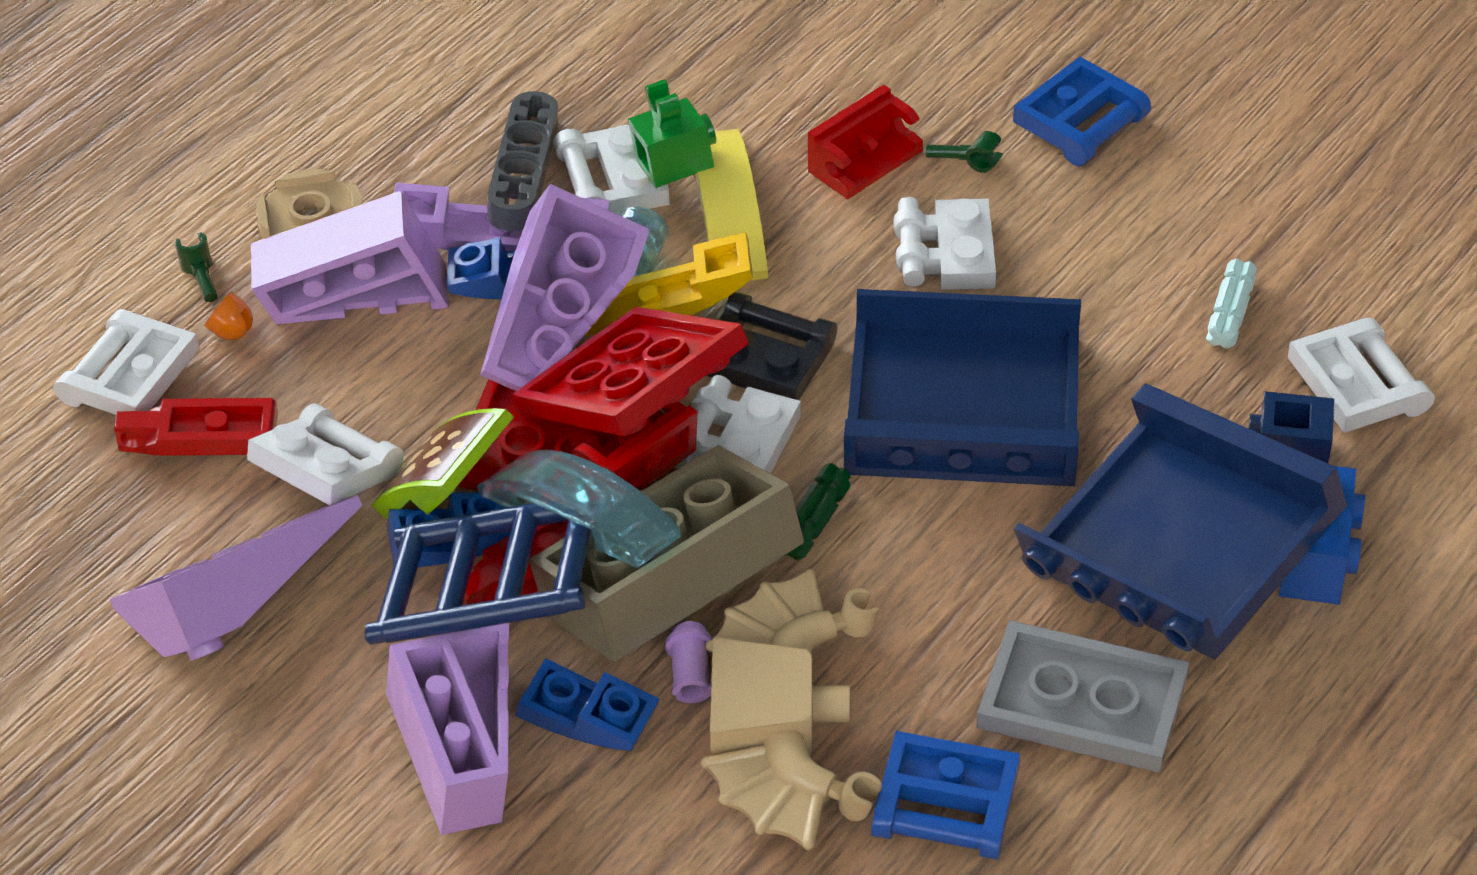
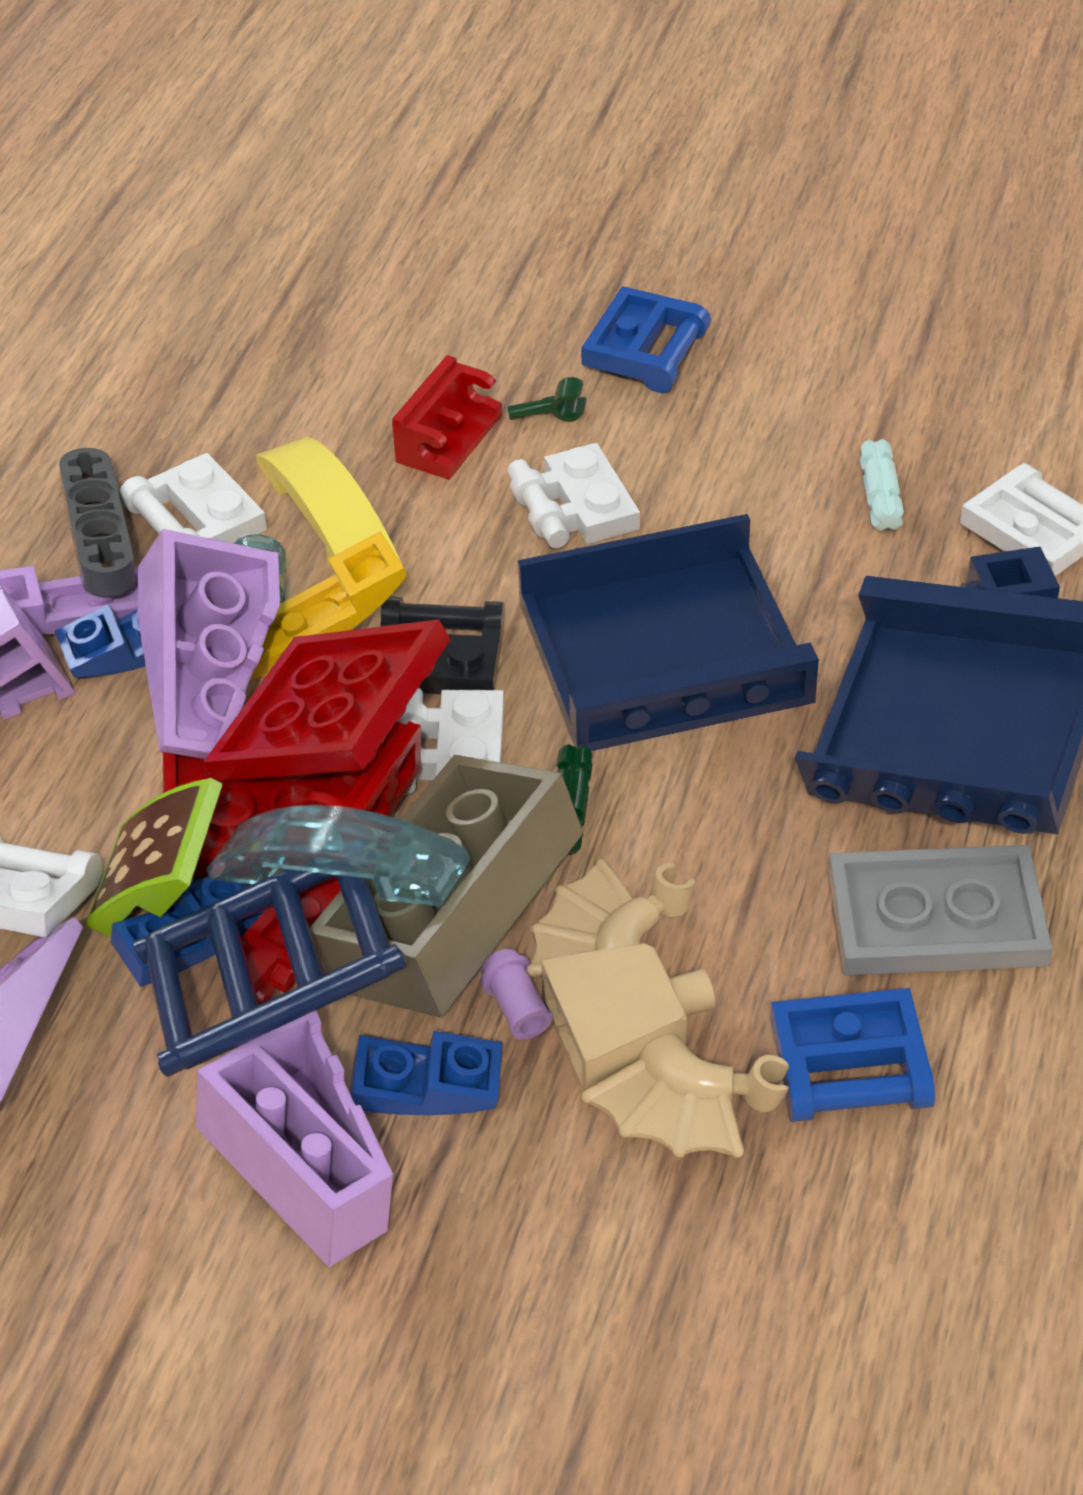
camera: 20 degrees left, 0 degrees up
(671, 137) = (256, 457): green brick -> none

